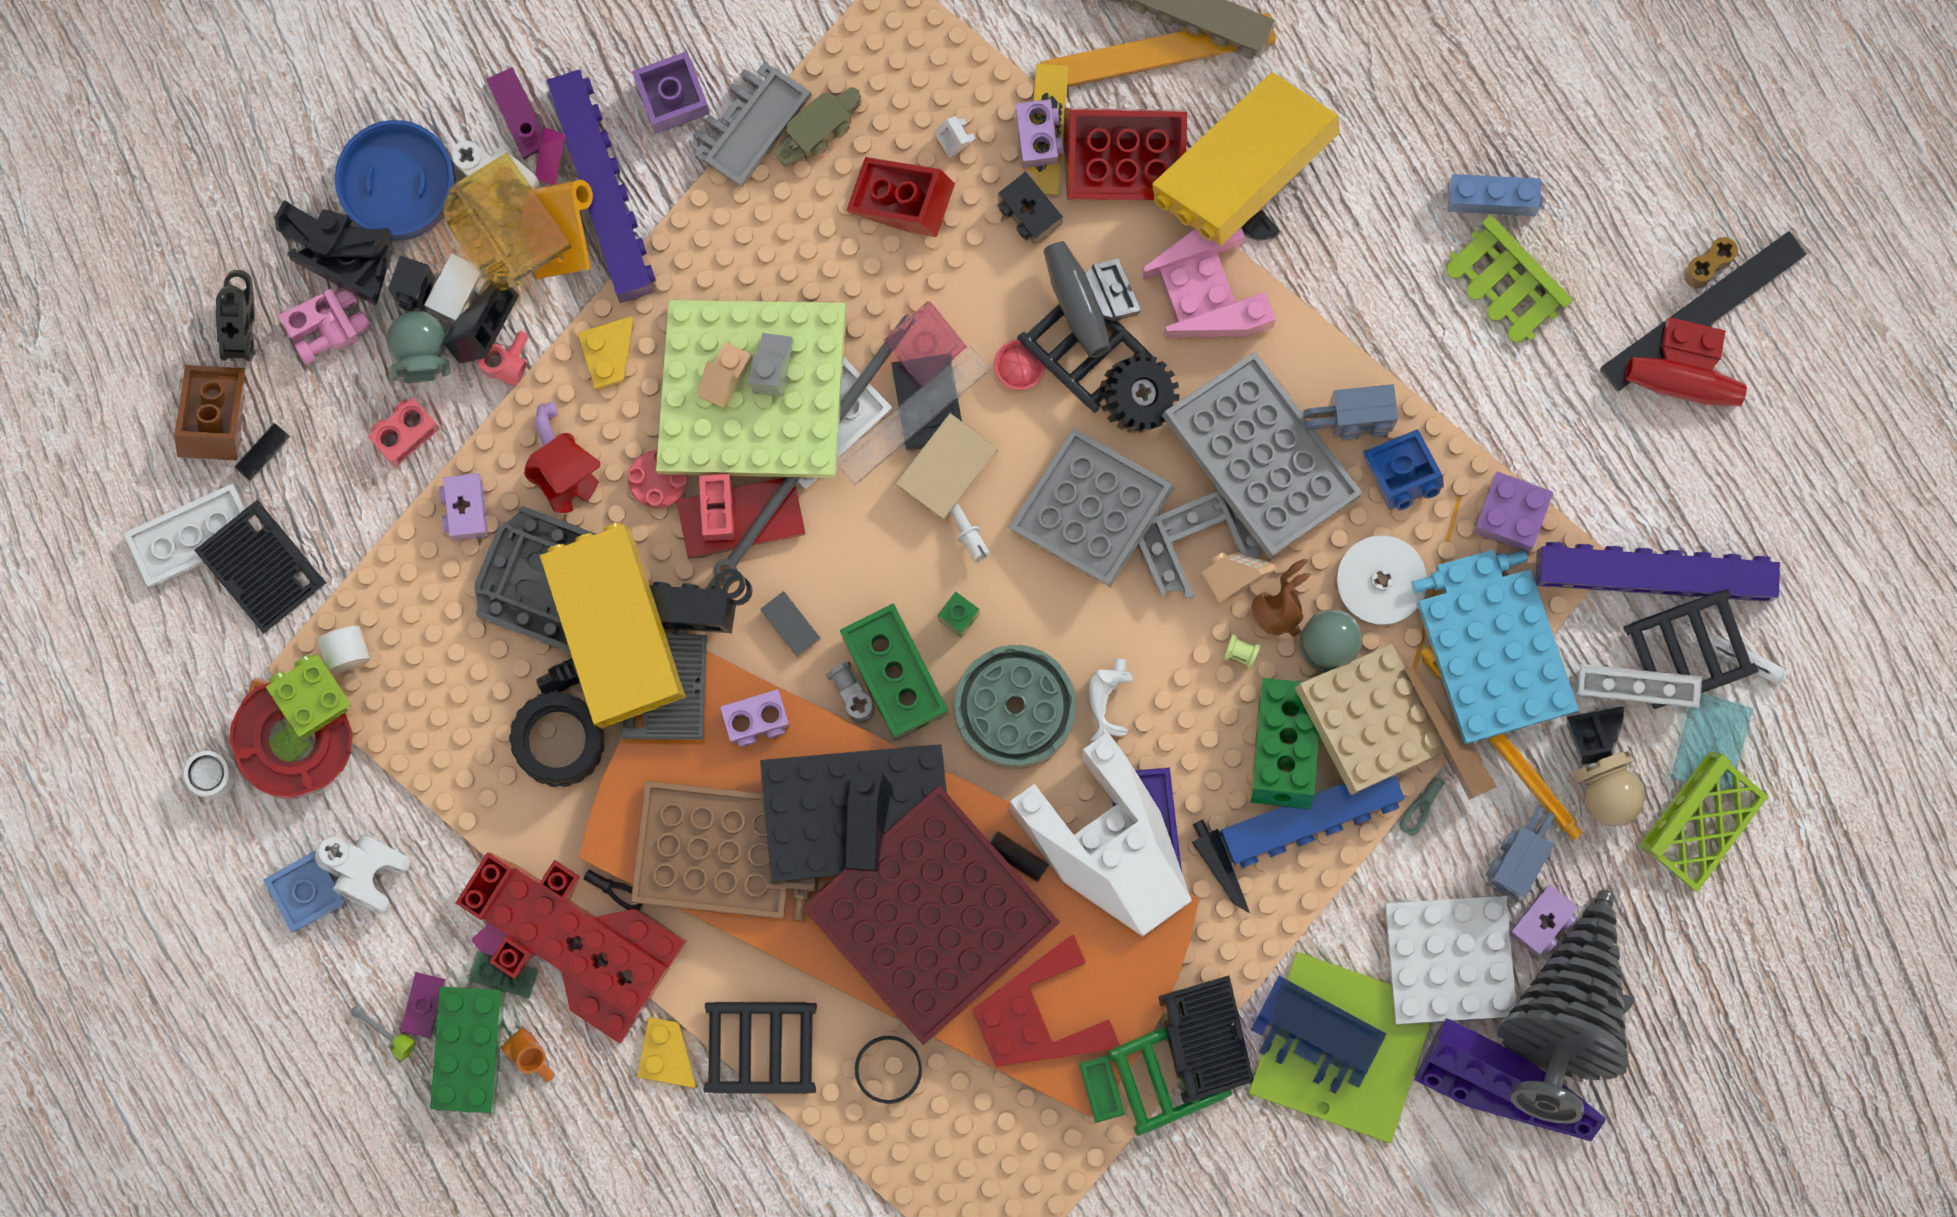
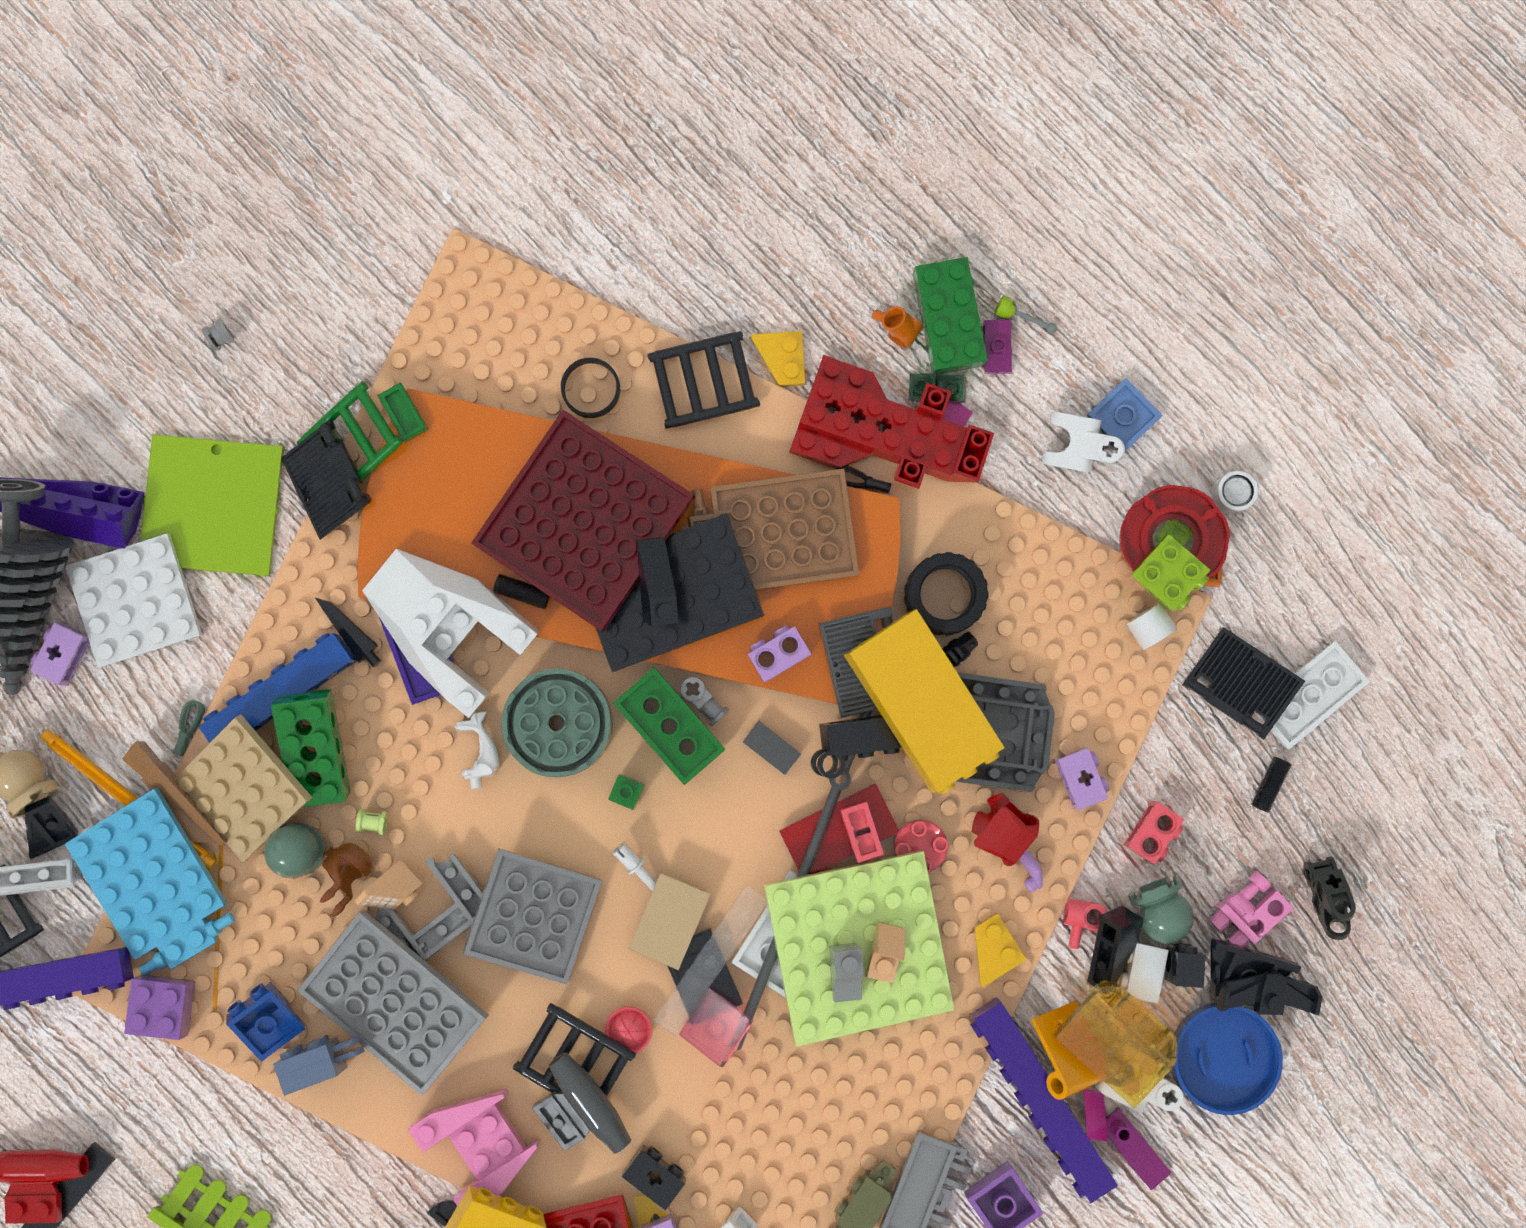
camera: 160 degrees right, 5 degrees up
(210, 413) = (1326, 807): dark orange slope -> none
(901, 195) = (772, 1159): red slope -> none
(1014, 1023) = (488, 446): red wing -> none
(1121, 397) = (530, 1033): black bush -> none
(1320, 1030) = (229, 511): clear blue hinge -> none
(1360, 569) = (285, 918): white piece -> none
(1522, 858) = (86, 702): sand blue brick -> none

